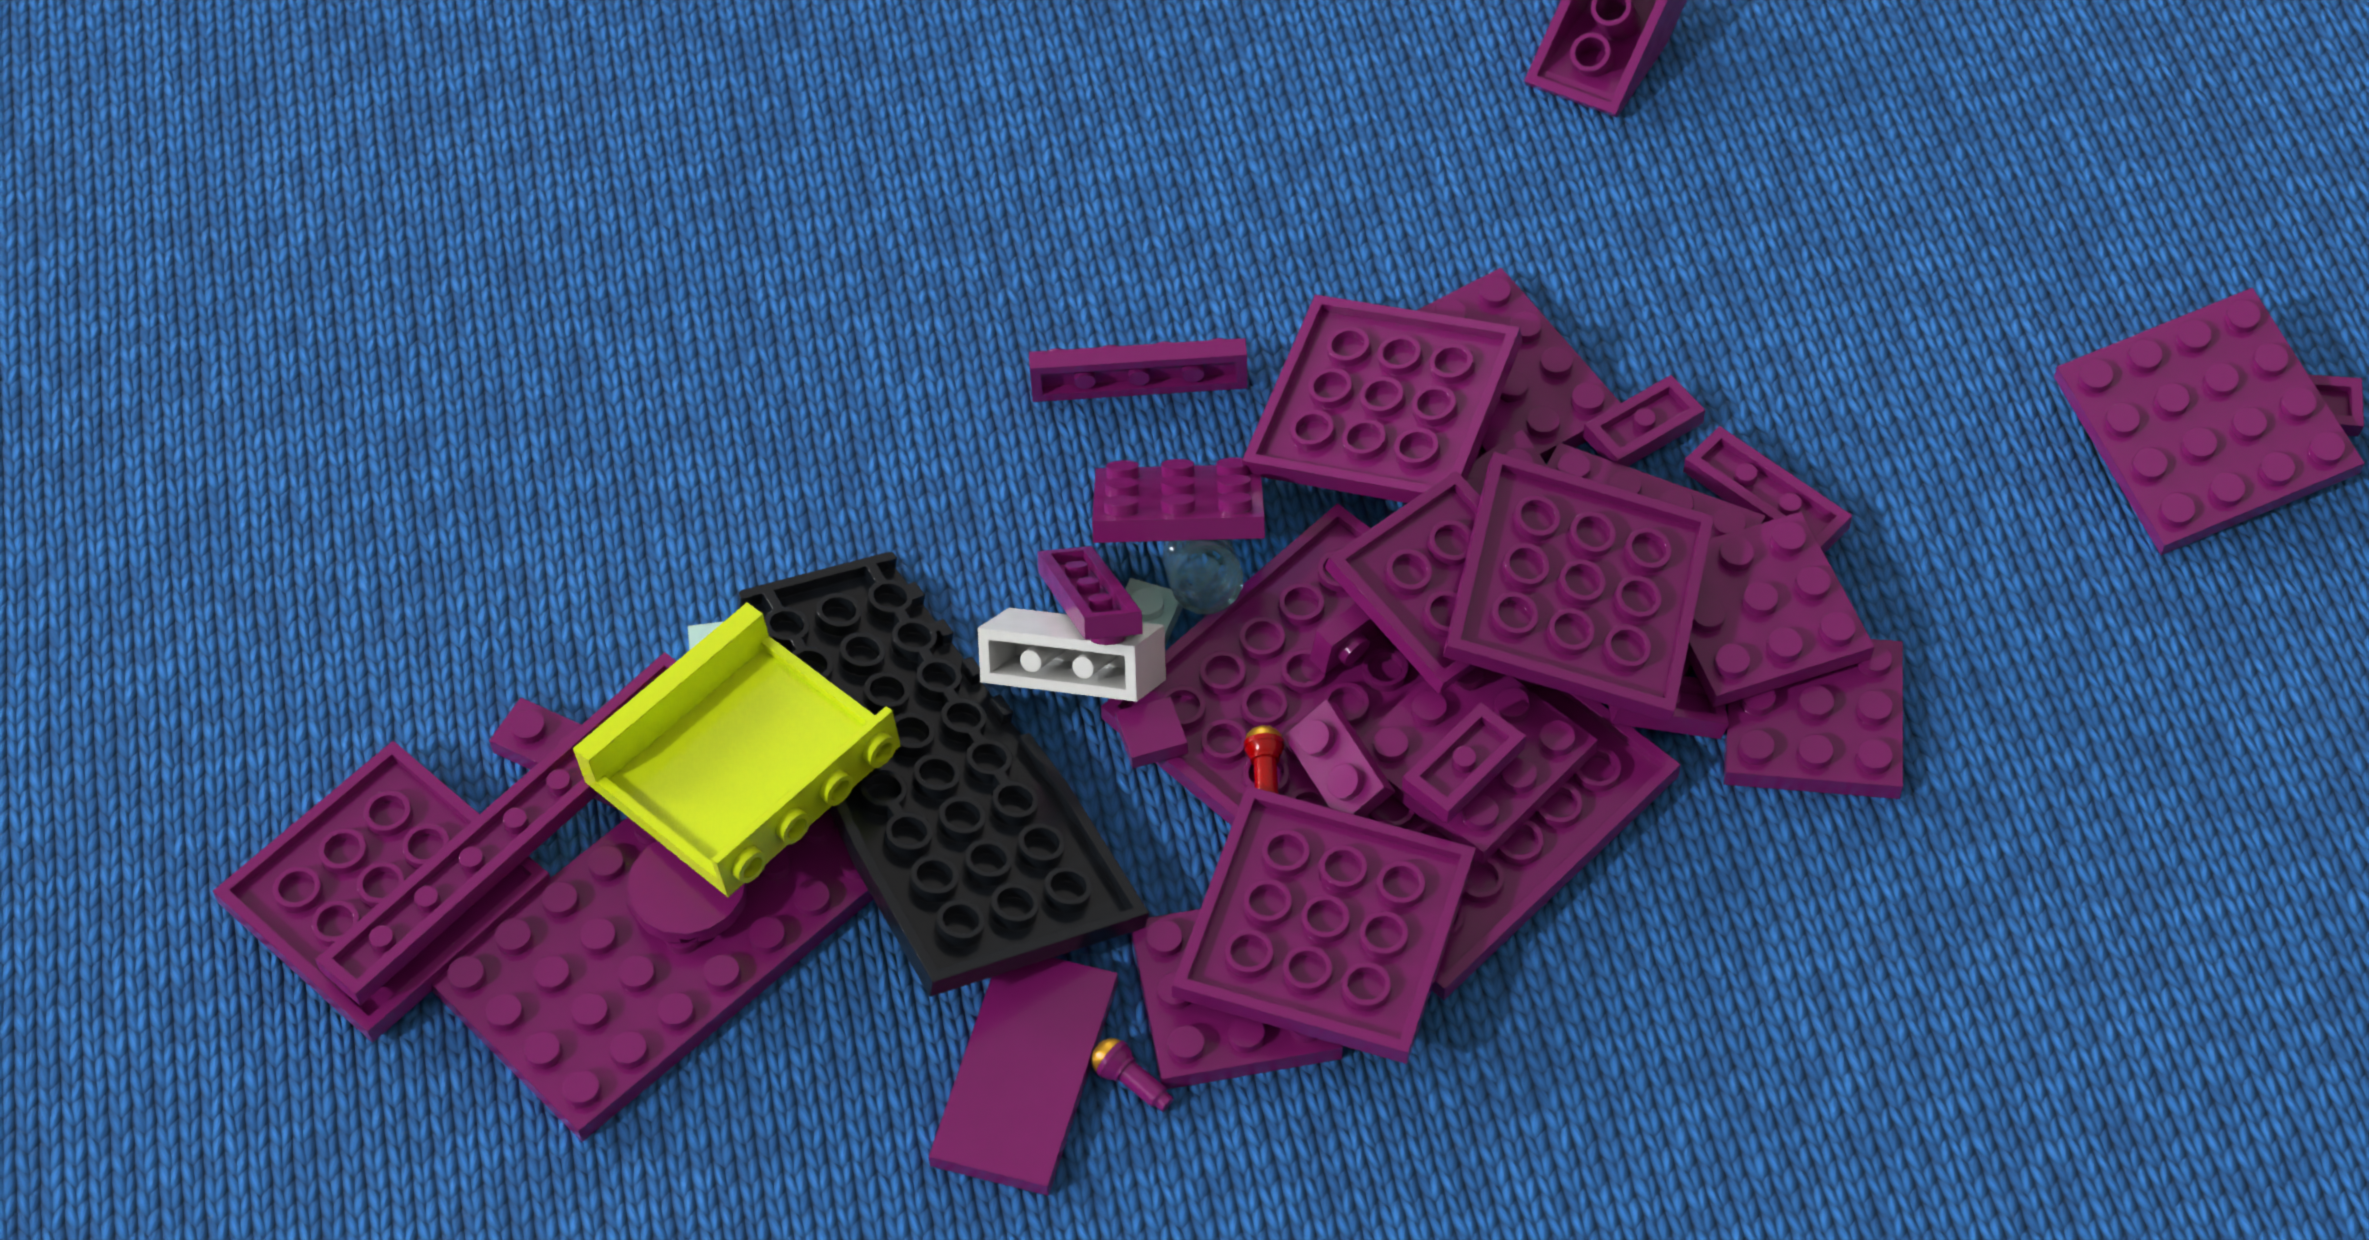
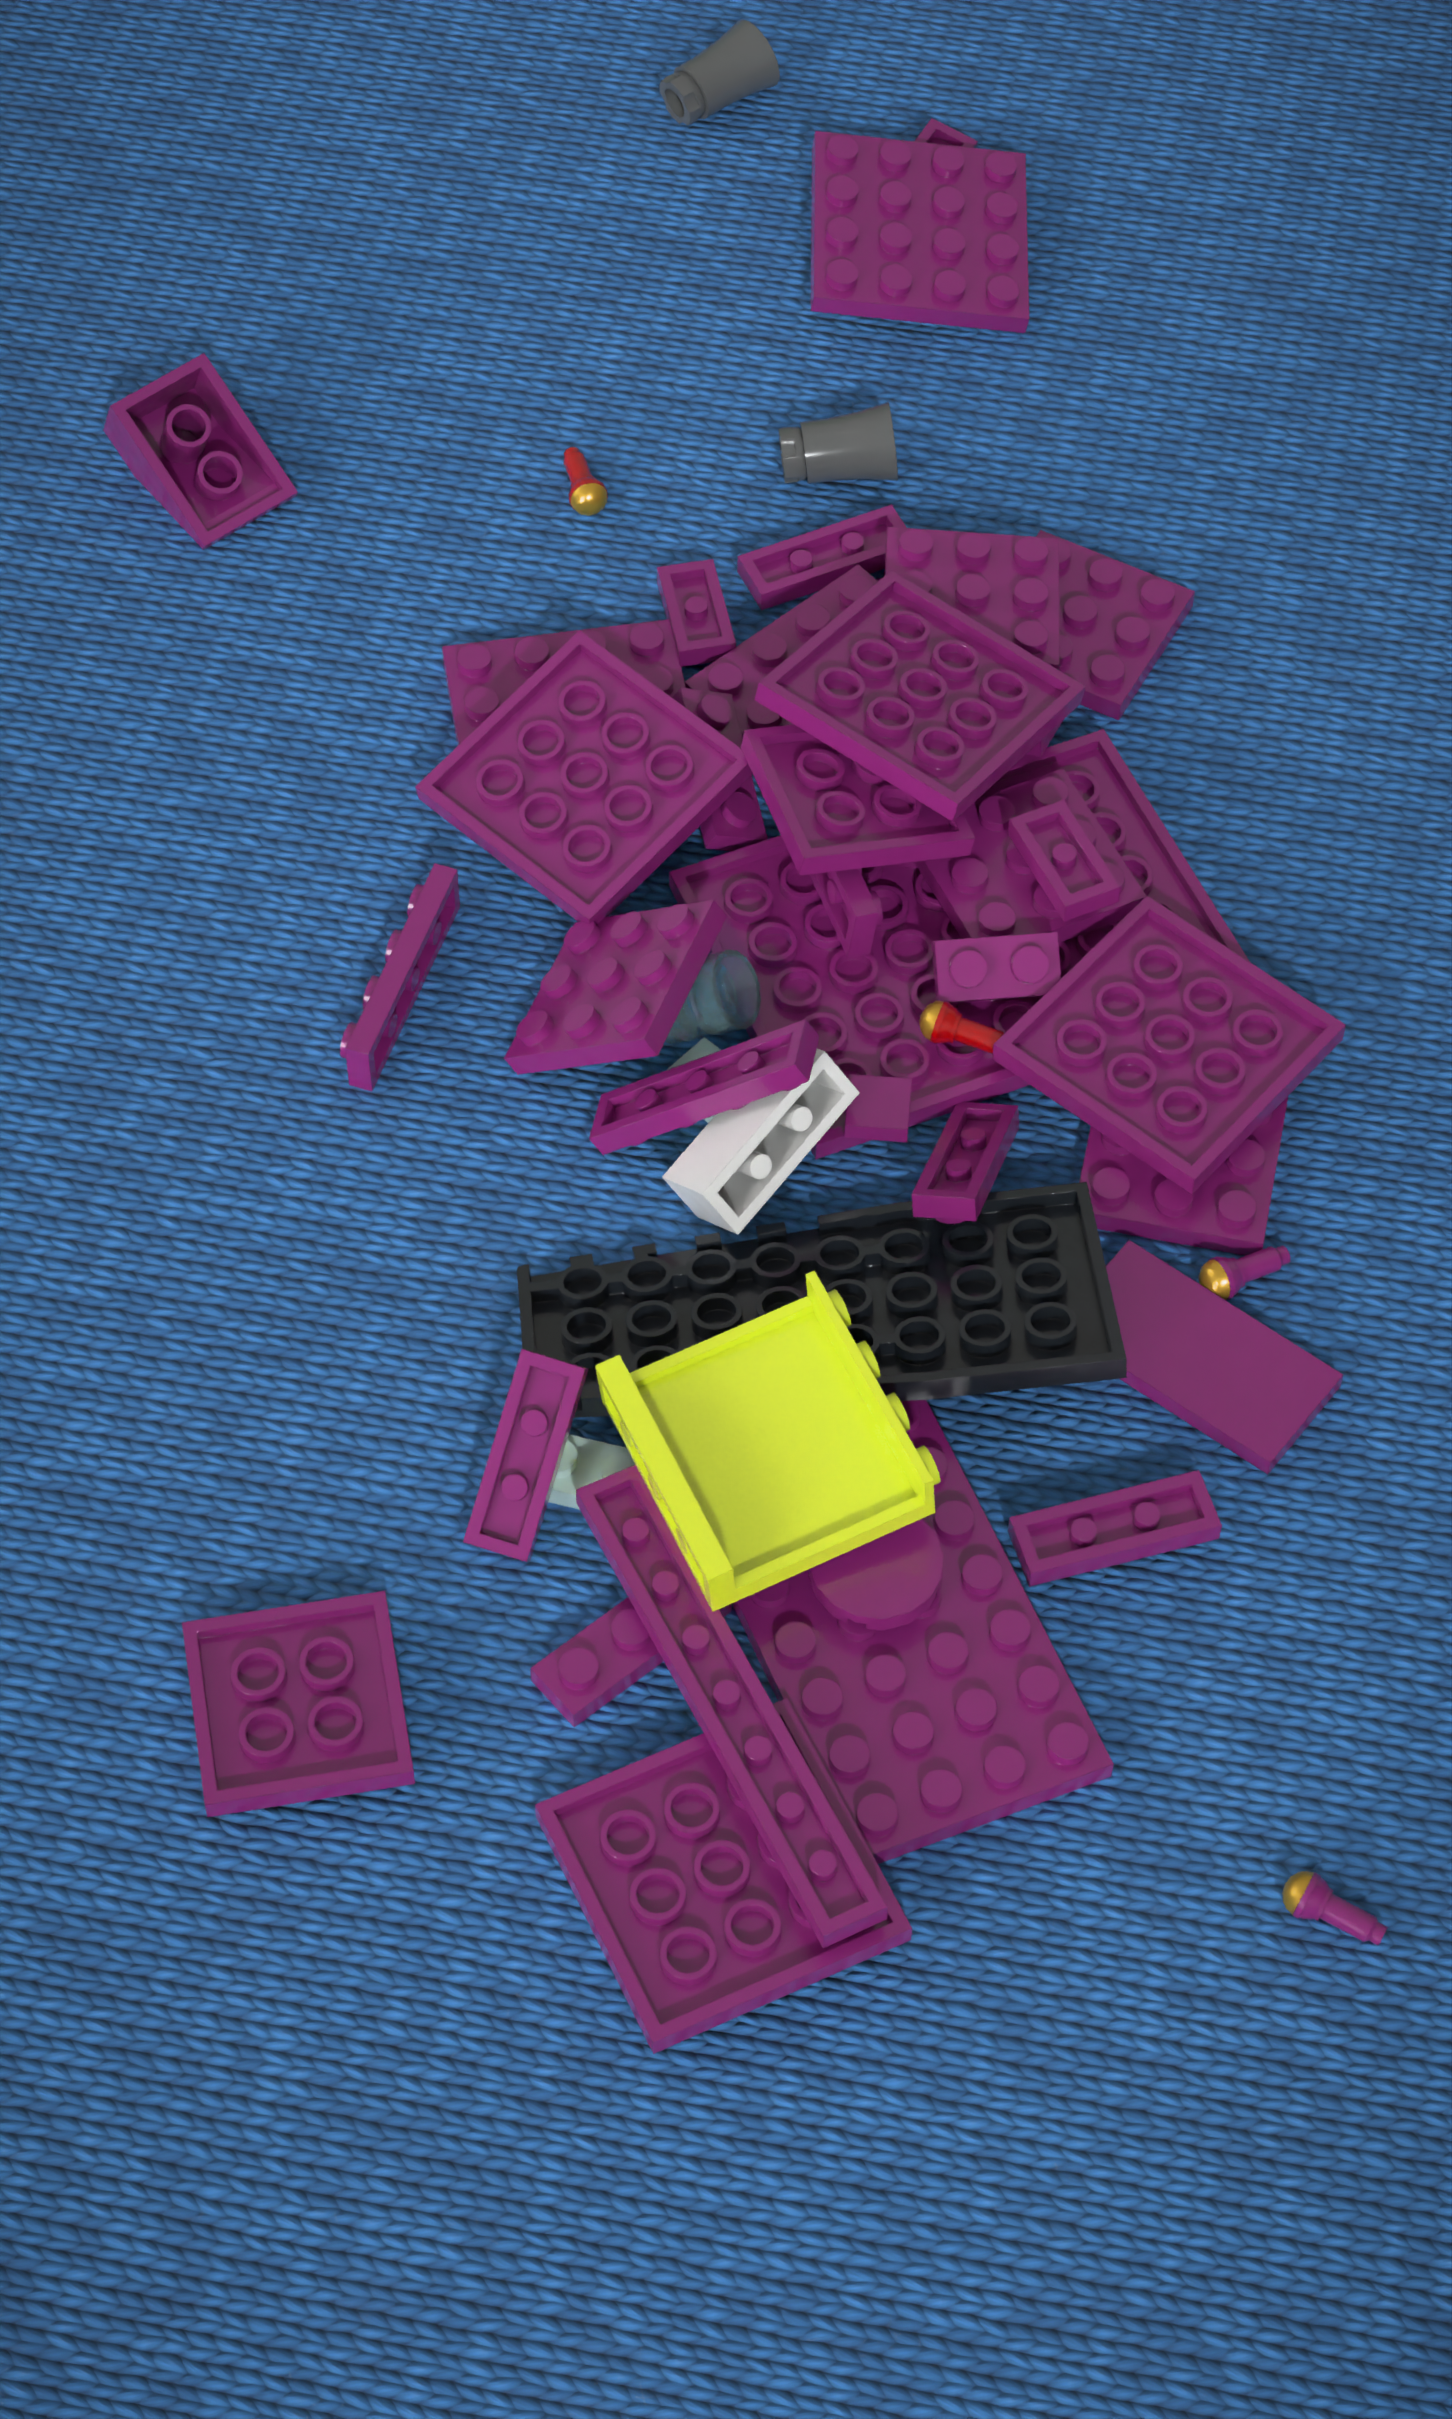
camera: 70 degrees left, 0 degrees up
(436, 564) = (297, 1704): none -> magenta plate
(688, 610) = (525, 1455): none -> magenta plate
(812, 1058) = (1114, 1528): none -> magenta plate
(1124, 813) = (965, 1162): none -> magenta plate
(1737, 302) = (587, 493): none -> piece
(1899, 458) = (841, 448): none -> dark grey plant
(2300, 206) = (721, 74): none -> dark grey plant

